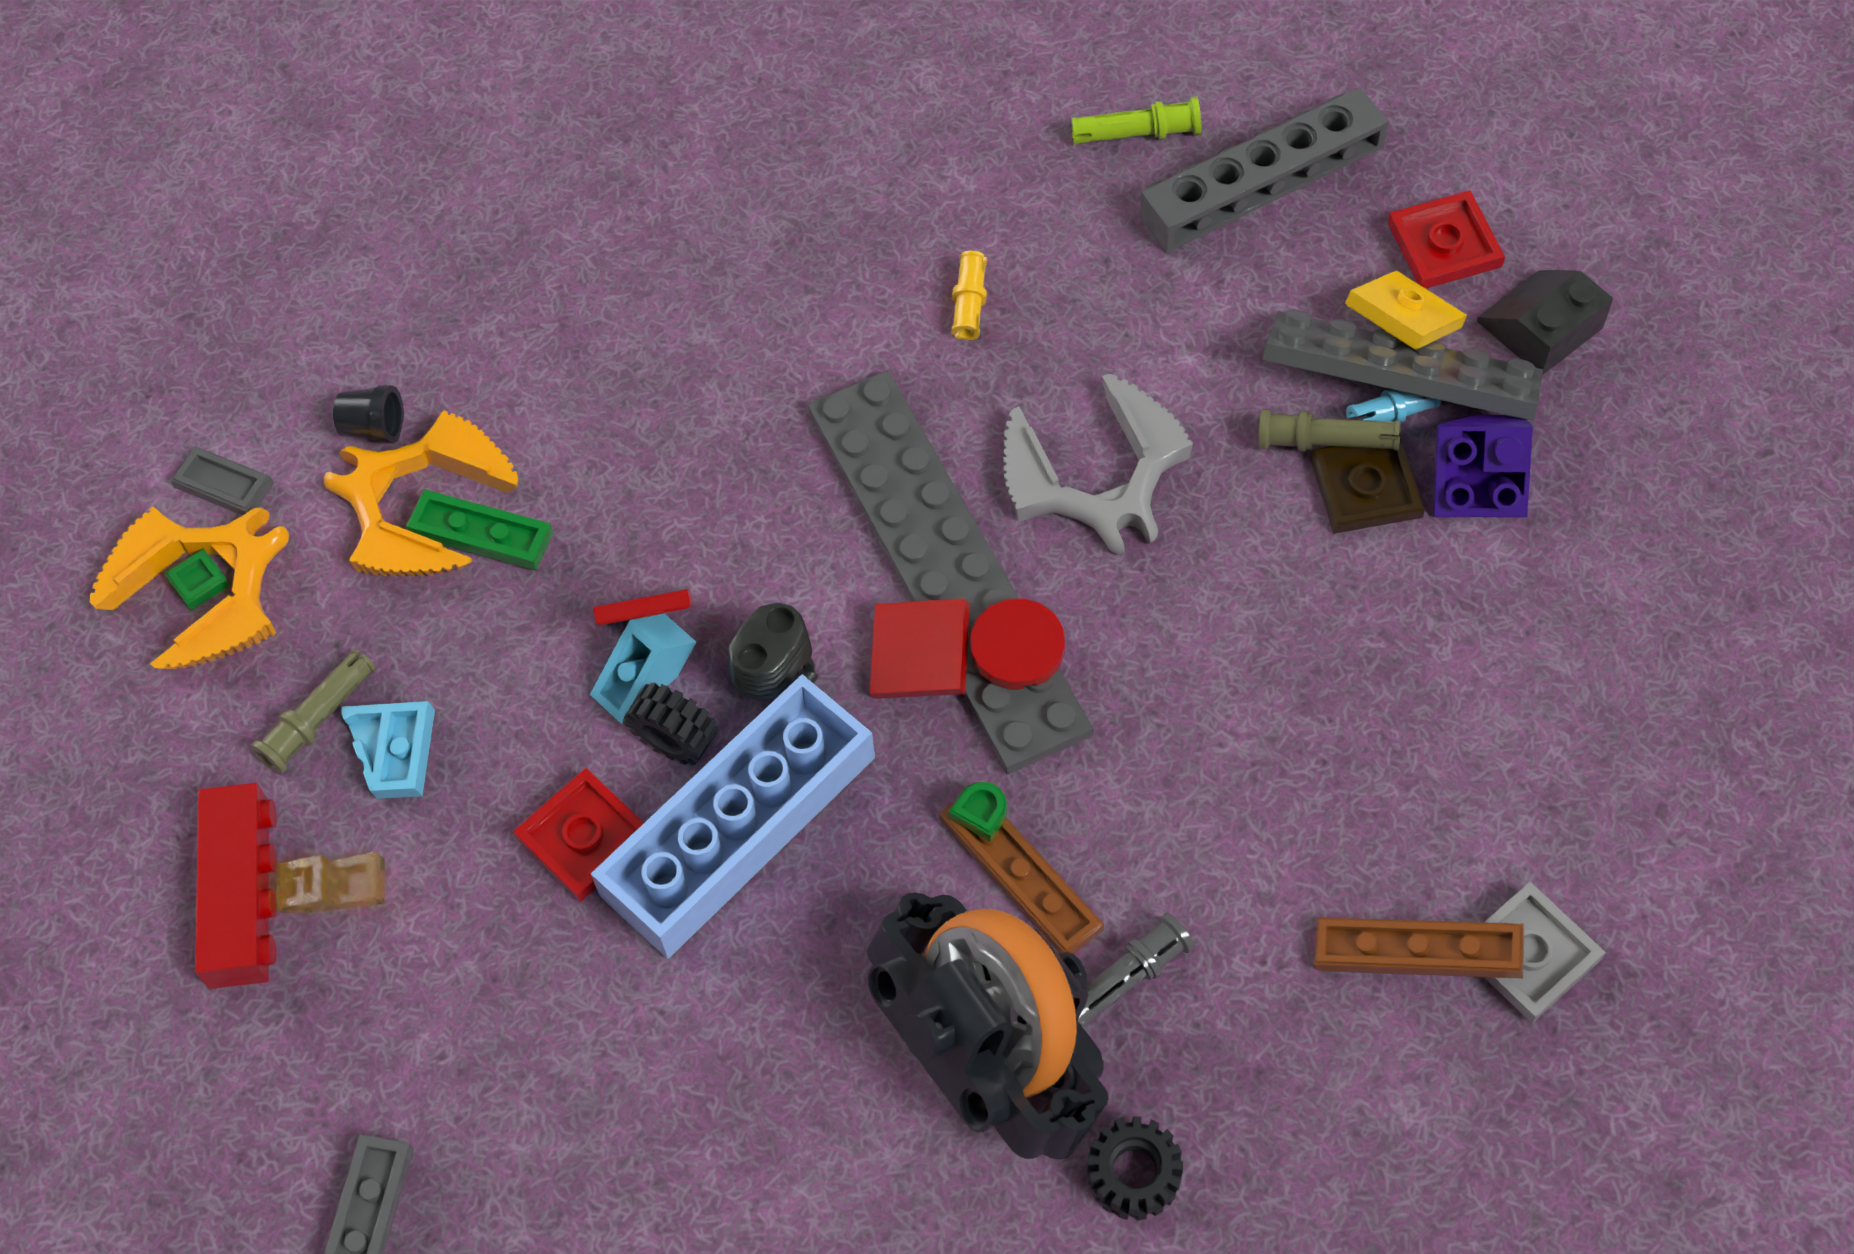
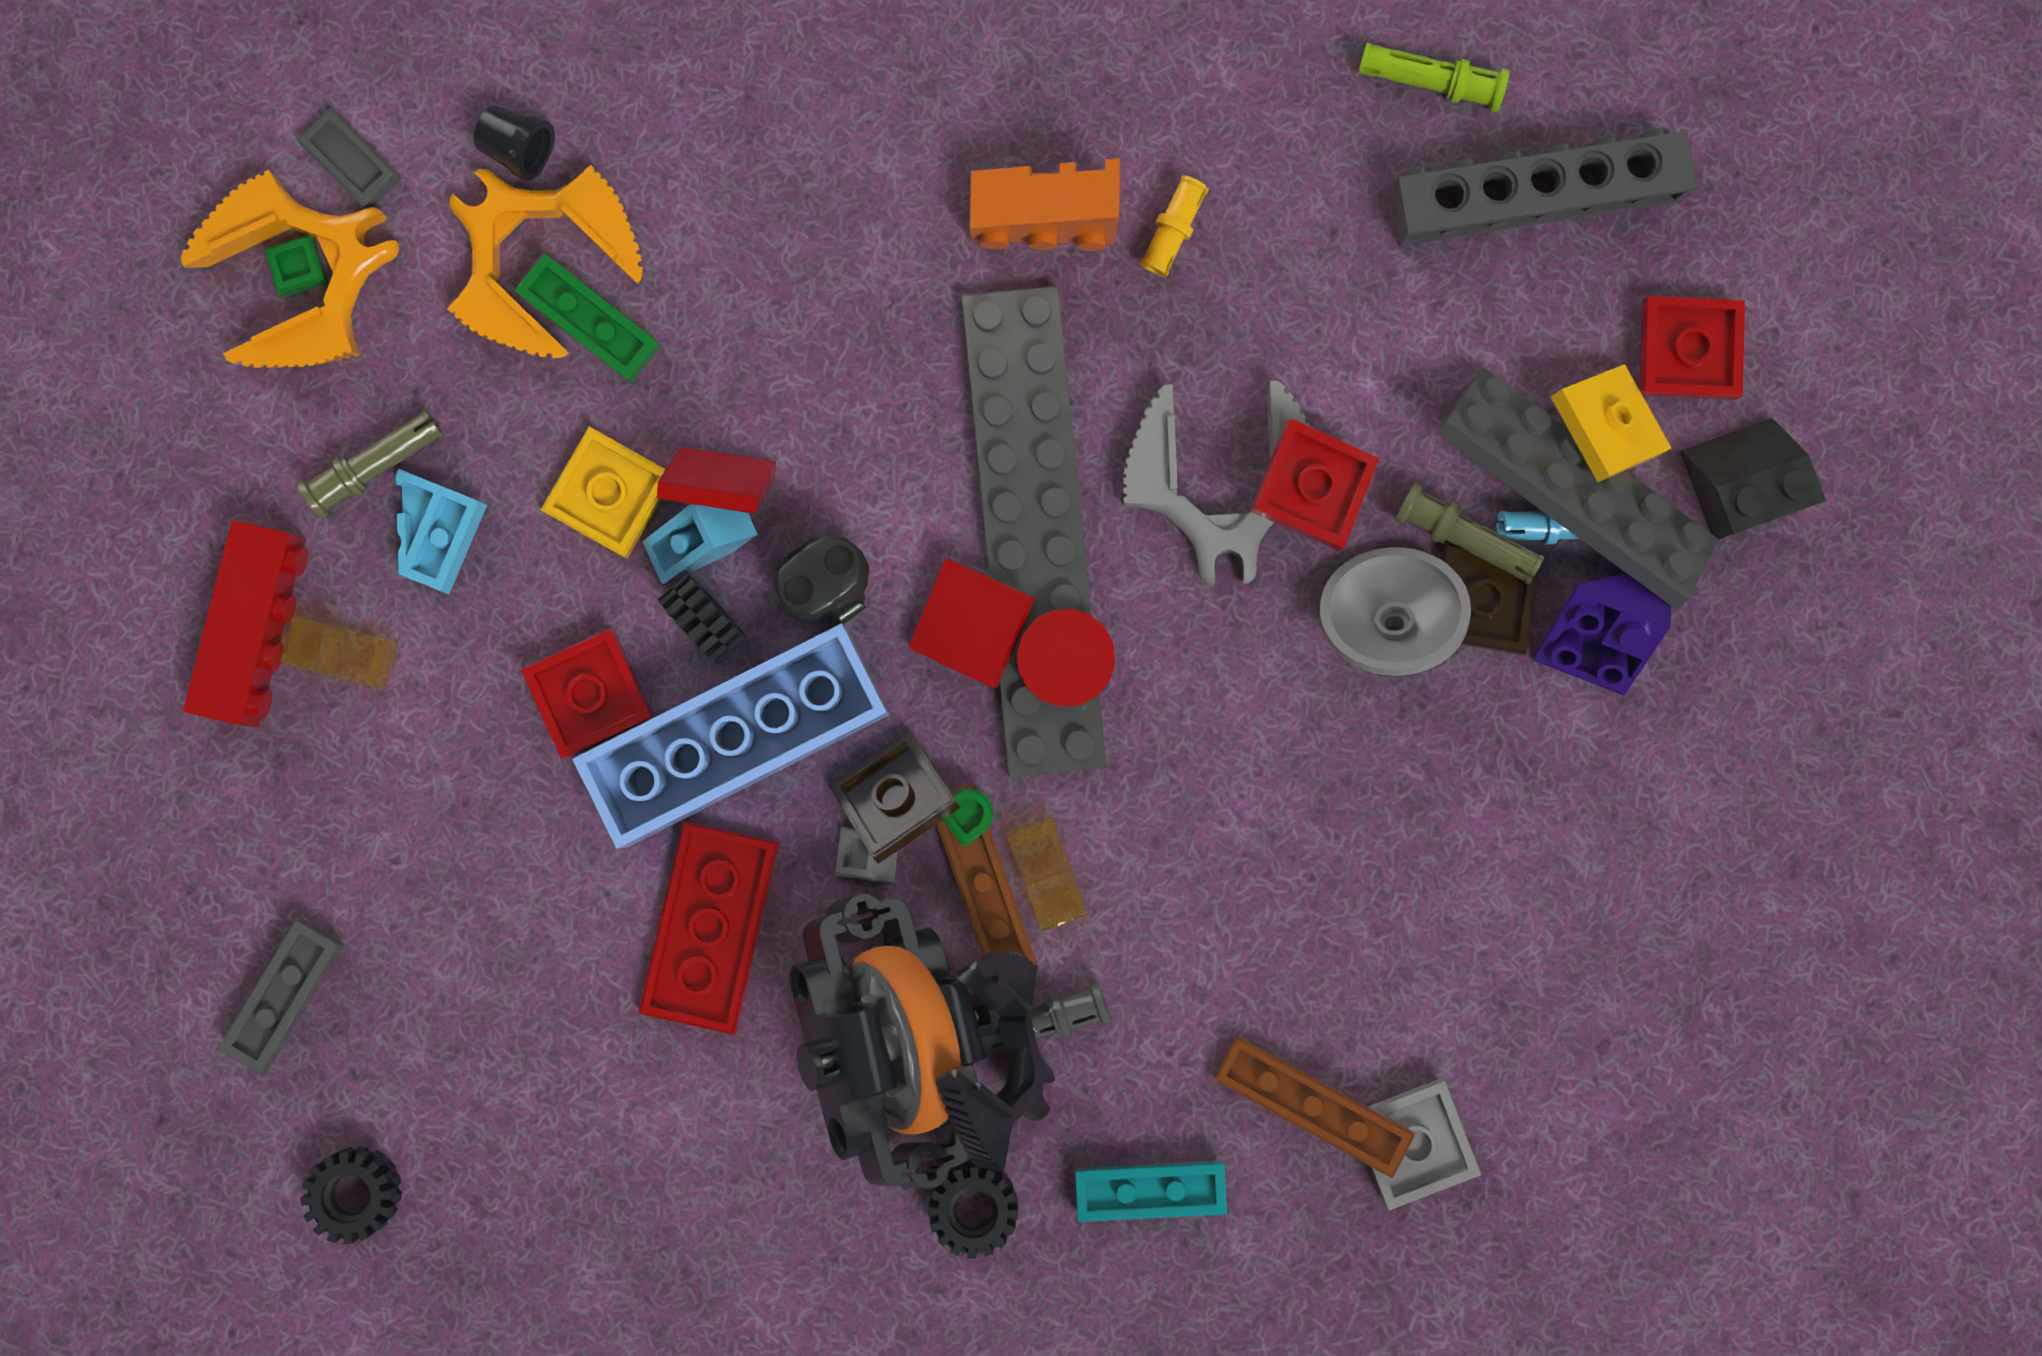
camera: 15 degrees right, 25 degrees up
(544, 664) = (606, 492): none -> yellow tile
(773, 1006) = (709, 927): none -> red tile
(856, 311) = (1045, 207): none -> orange wedge
(896, 879) = (857, 862): none -> light grey slope
(906, 817) = (893, 796): none -> dark brown tile
(1075, 841) = (1046, 873): none -> clear yellow slope
(1104, 997) = (978, 1115): none -> black piece
(1176, 432) = (1314, 484): none -> red plate
(1292, 507) = (1400, 591): none -> light grey dish
(1300, 1087) = (1150, 1191): none -> teal plate

